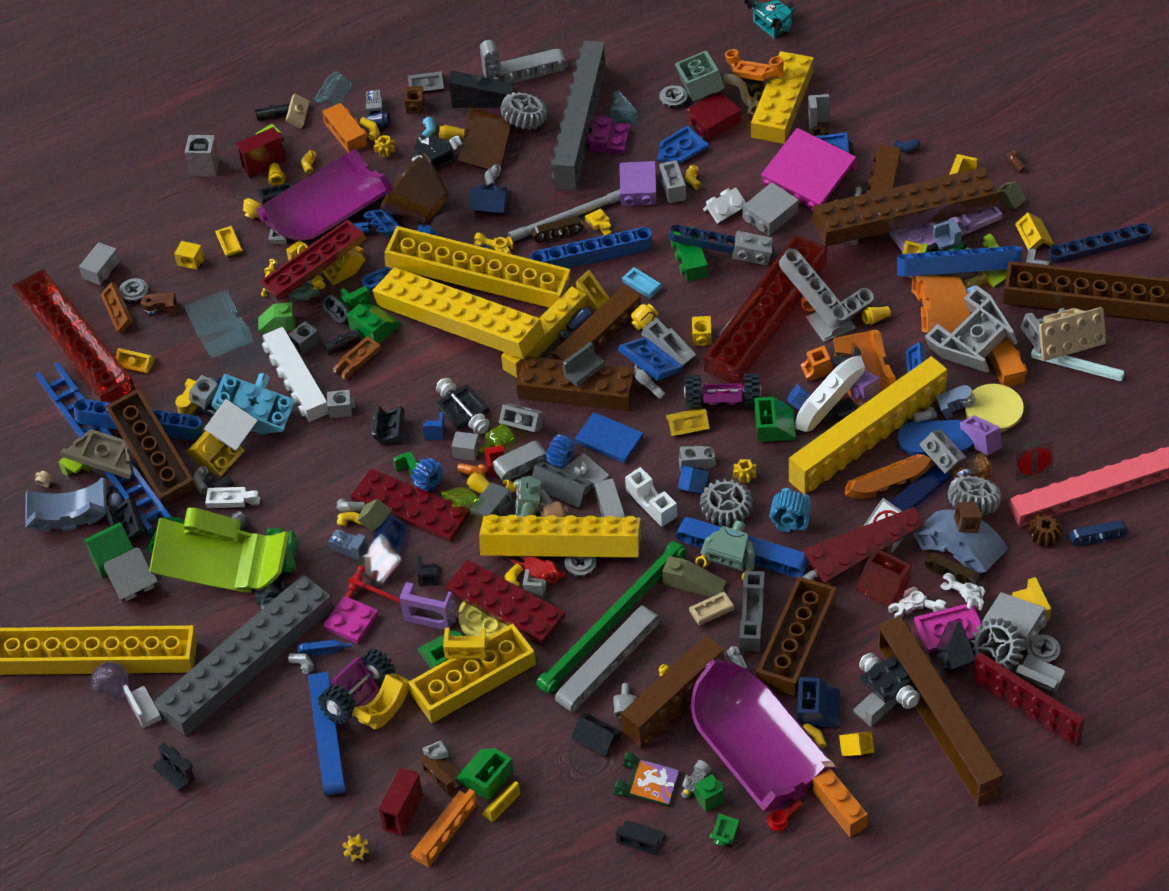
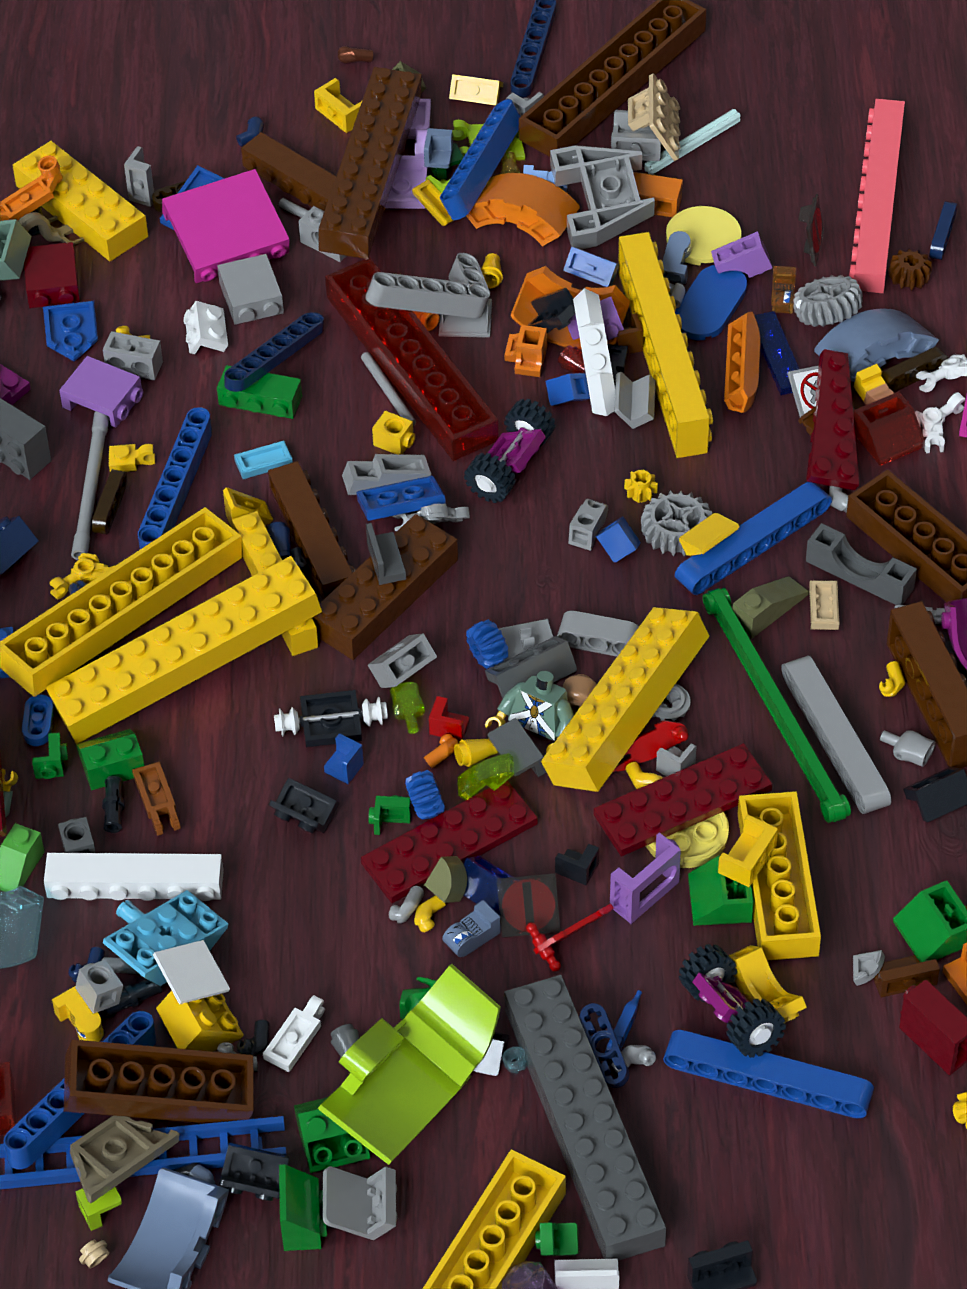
camera: 65 degrees left, 0 degrees up
(153, 677) = (557, 1239): none -> green bracket
(290, 654) = (604, 1022): none -> dark blue beam
(336, 308) = (54, 784): black plate -> none
(340, 403) = (218, 841): light grey brick -> none
(350, 620) = (596, 977): dark pink plate -> none
(465, 446) = (403, 737): light grey panel -> none
(519, 460) = (468, 692): light grey beam -> none
(609, 437) = (489, 593): blue tile -> none
(643, 316) = (328, 477): yellow head -> none
(658, 506) = (643, 587): white arch -> none
(688, 421) = (522, 506): yellow panel -> none
(716, 517) = (707, 534): none -> yellow slope
(729, 548) = (762, 541): sand green torso -> none
(752, 248) = (306, 327): light grey bracket -> none
(774, 420) = (584, 429): green slope -> none
(790, 510) = (739, 466): dark azure brick -> none
(810, 430) = (635, 399): none -> light grey panel
(917, 555) = (871, 385): none -> yellow leg
(942, 450) = (747, 297): light grey brick -> none
(967, 517) = (867, 312): reddish brown brick -> none

